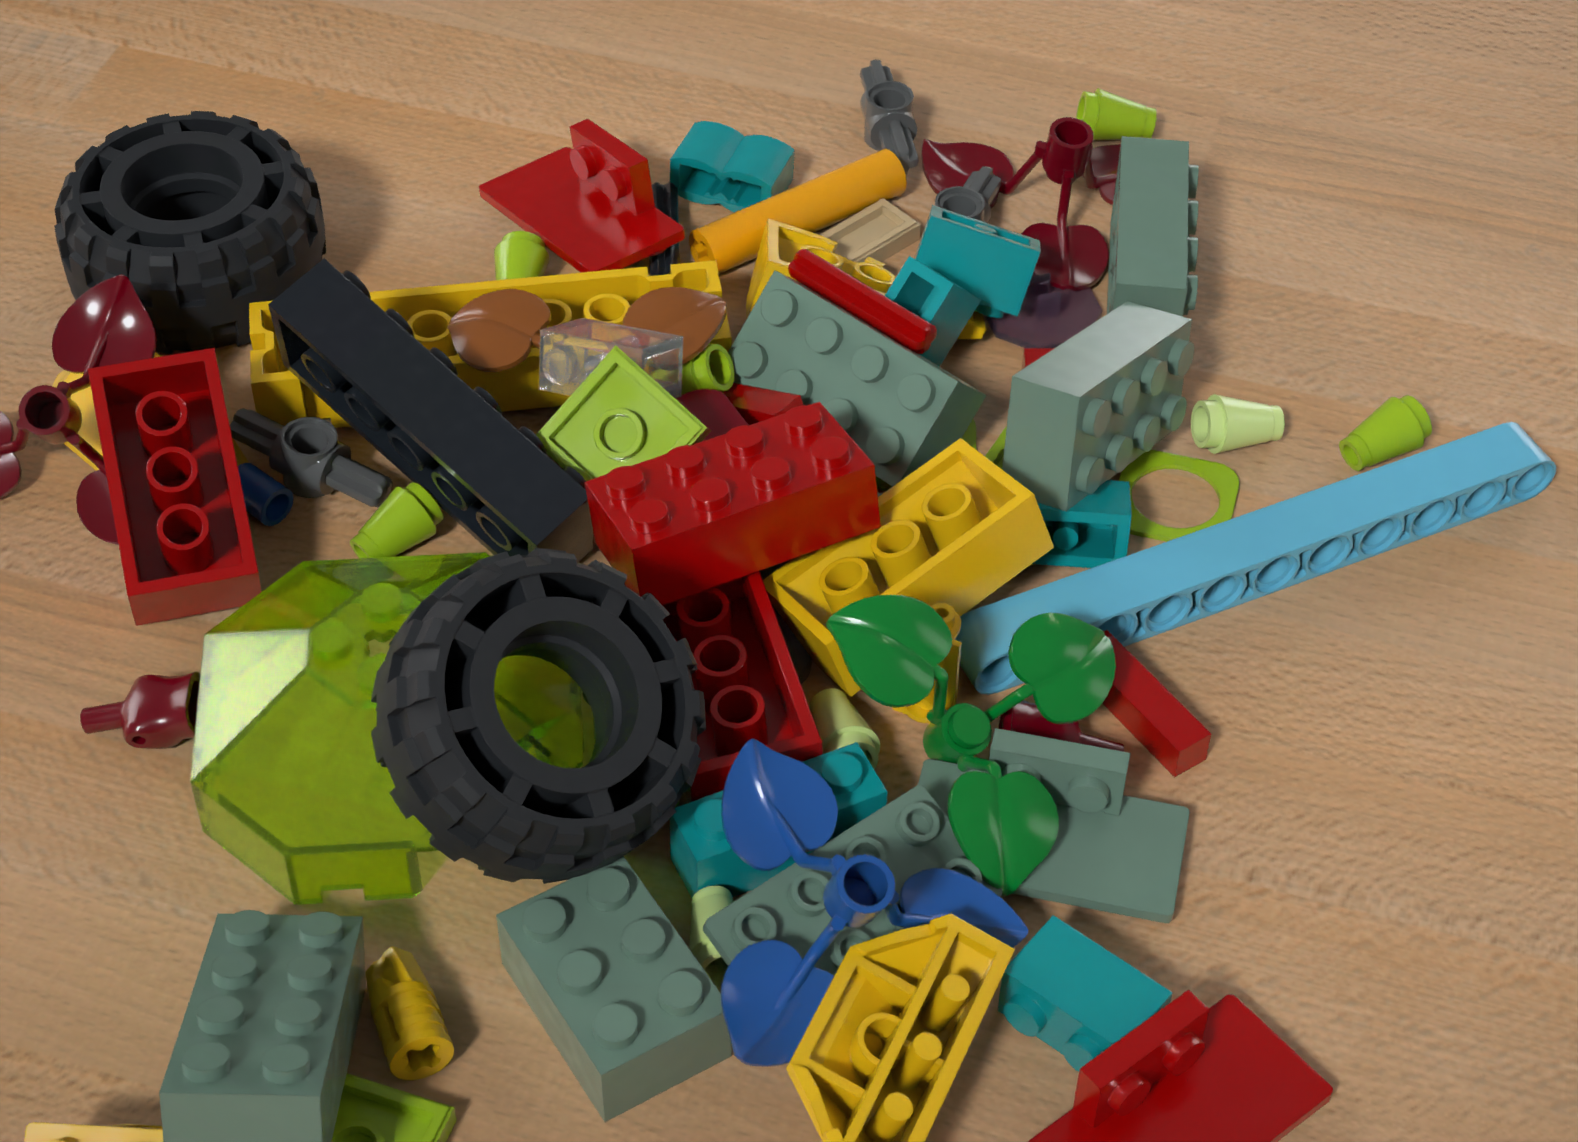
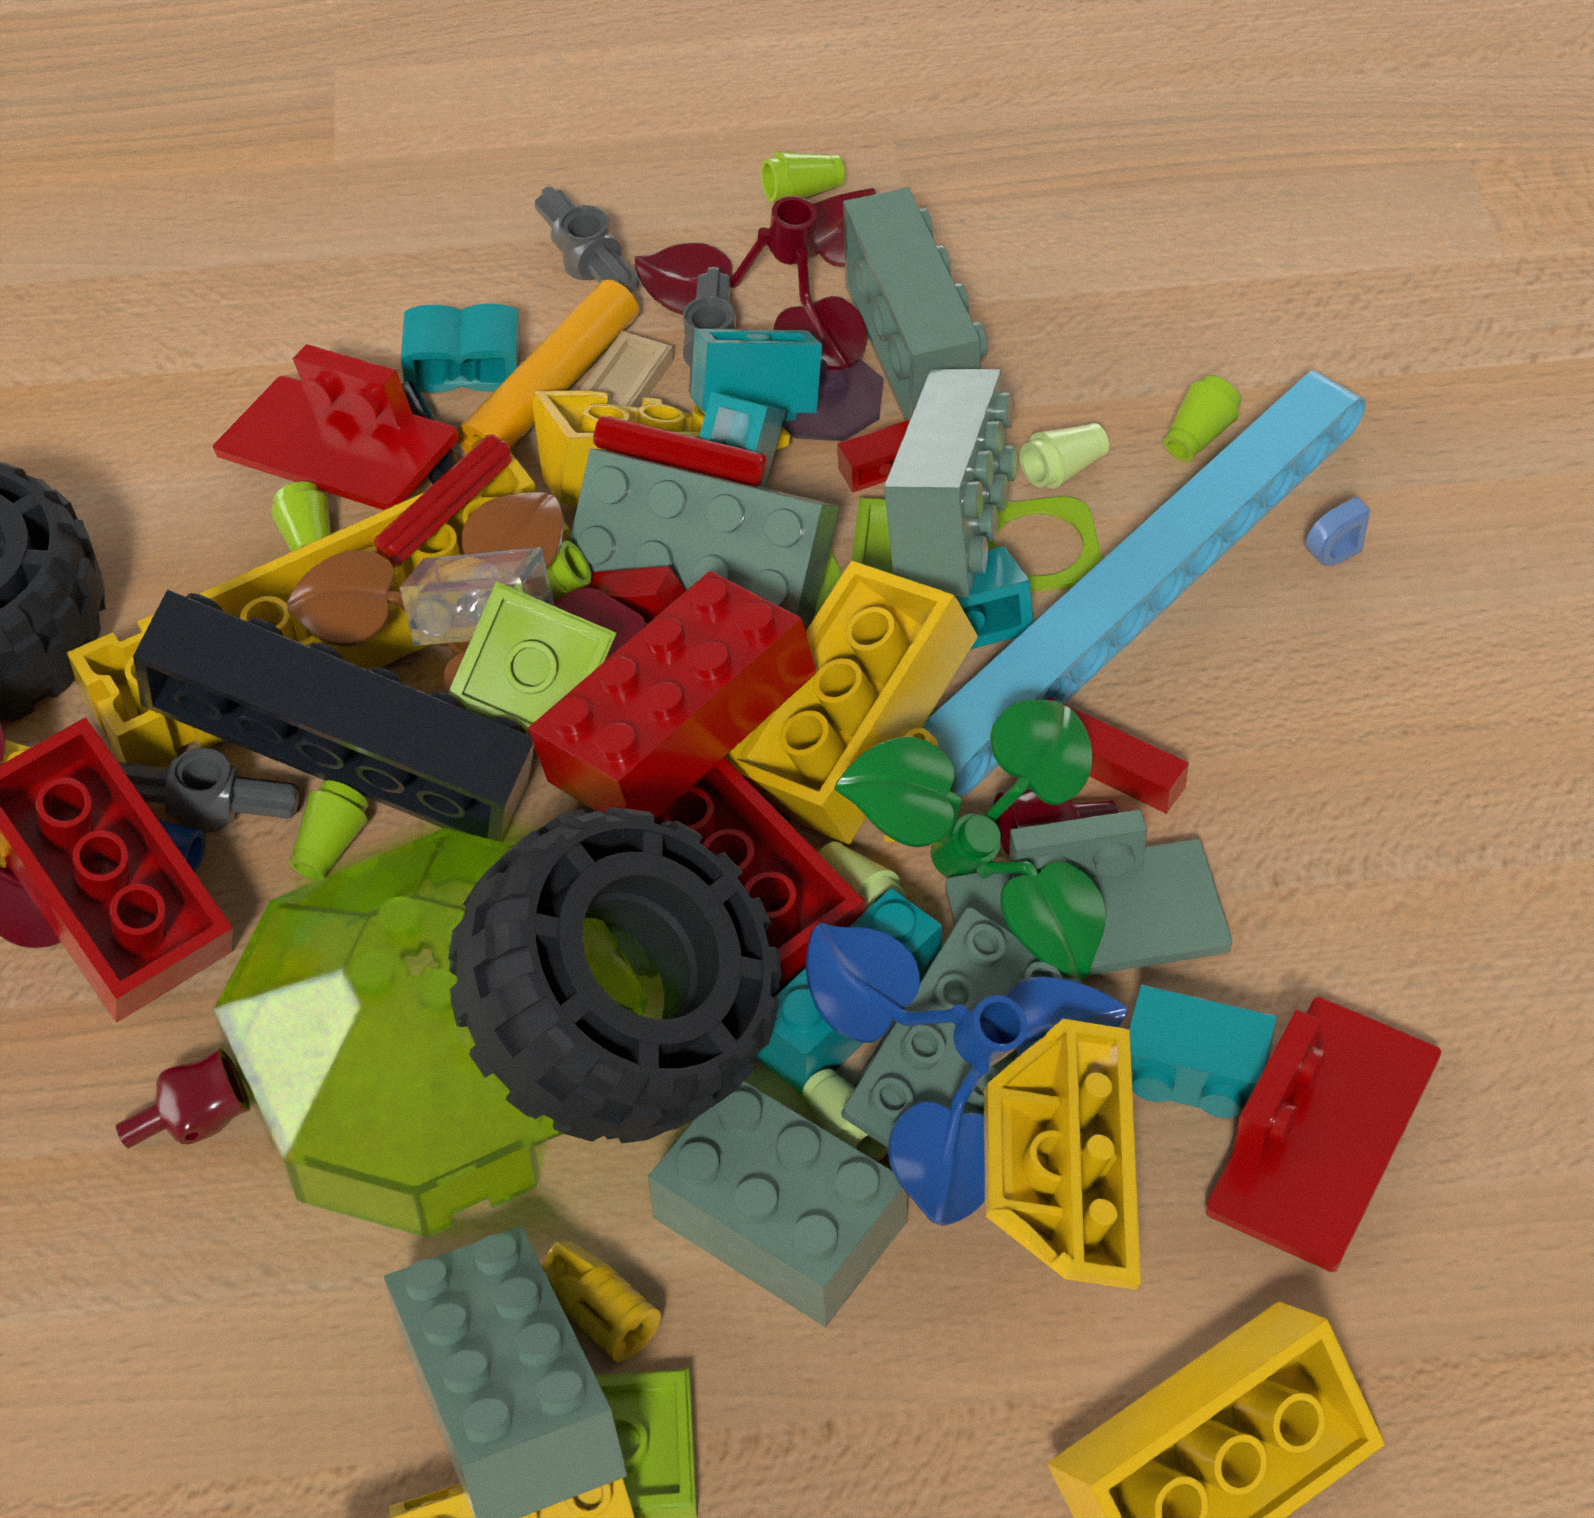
camera: 20 degrees left, 5 degrees up
(630, 277) = (443, 500): none -> red axle
(1469, 577) = (1339, 533): none -> medium blue tile

